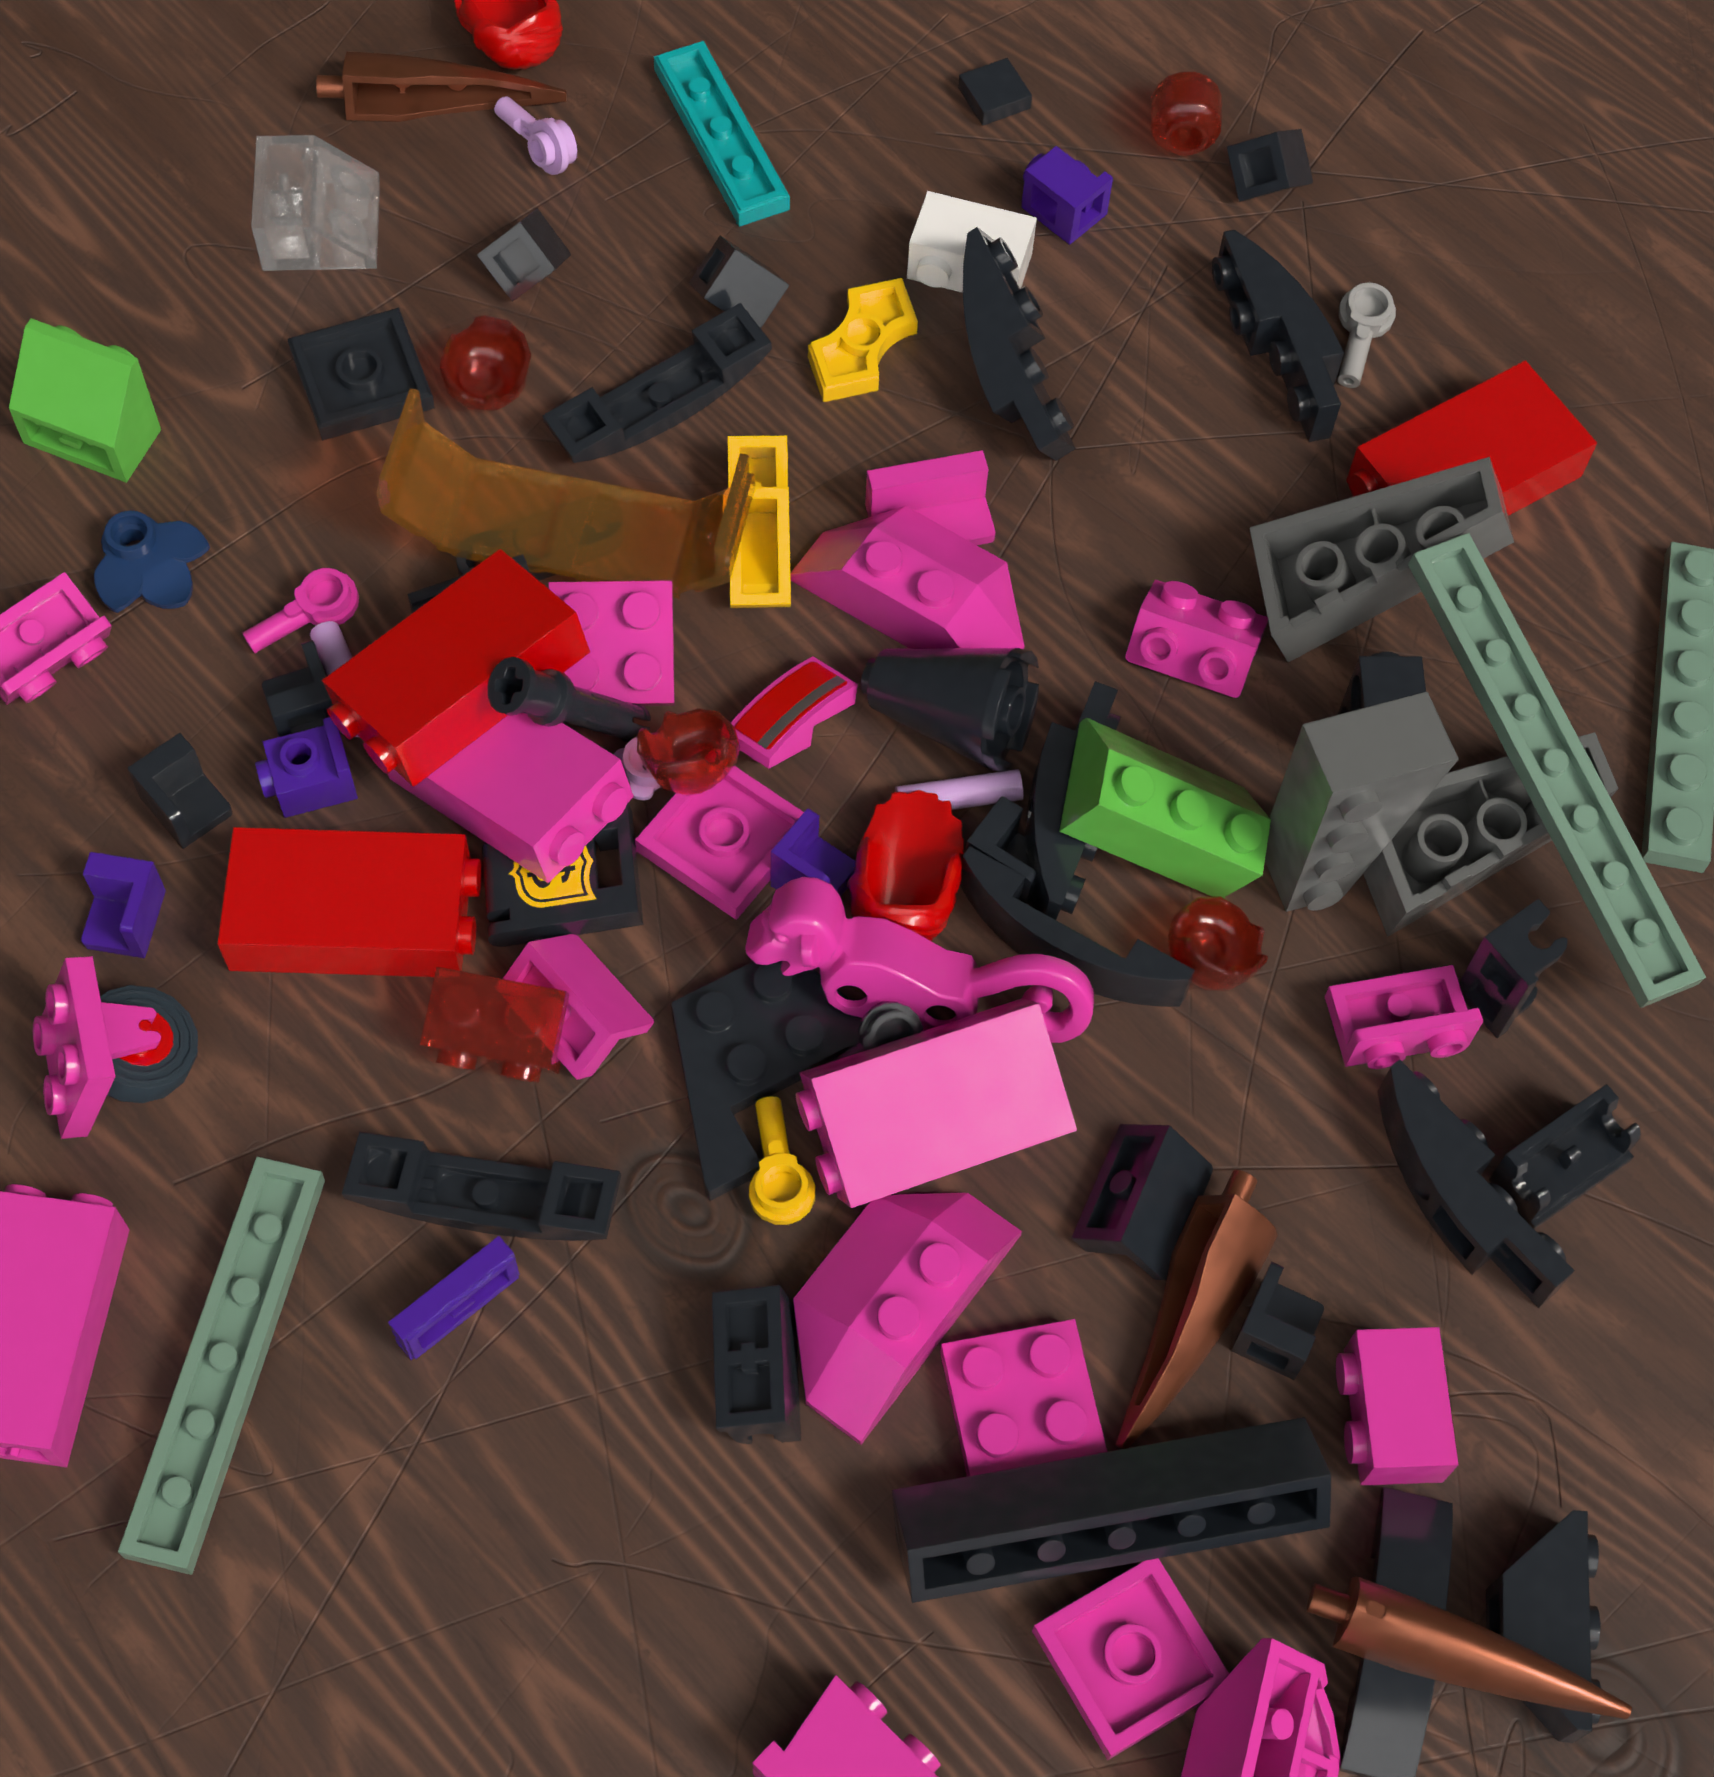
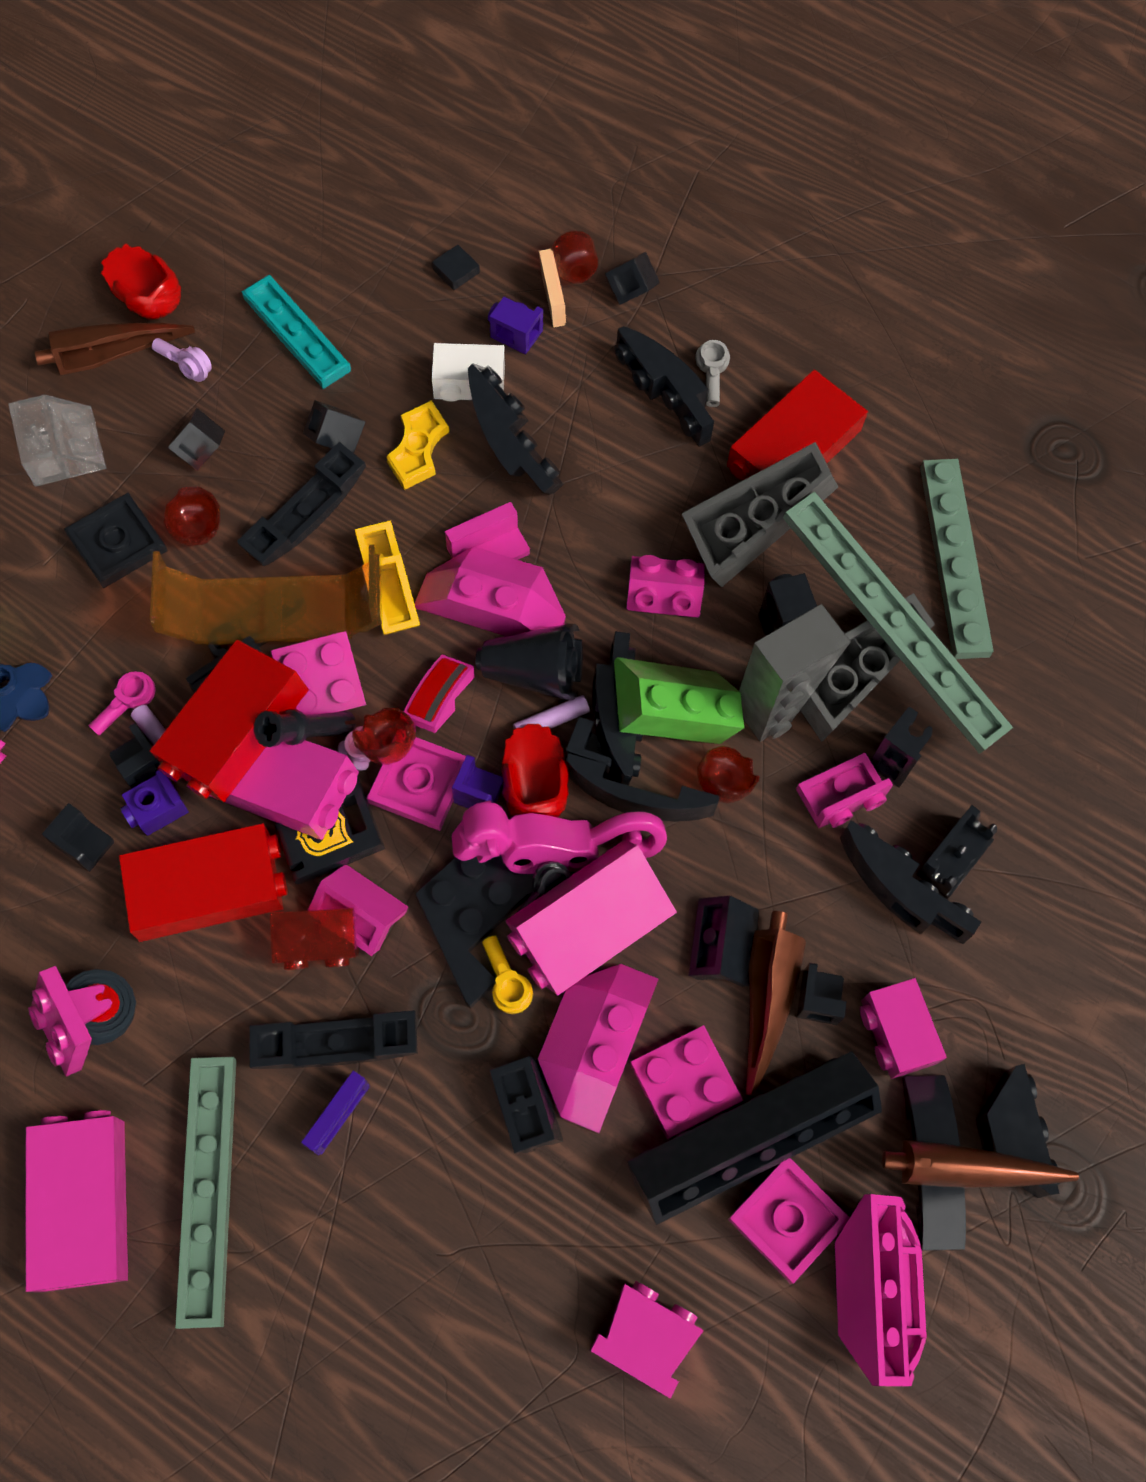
camera: 15 degrees left, 5 degrees up
(124, 904) = (62, 919): dark purple panel -> none
(1138, 152) = (552, 287): none -> light nougat tile

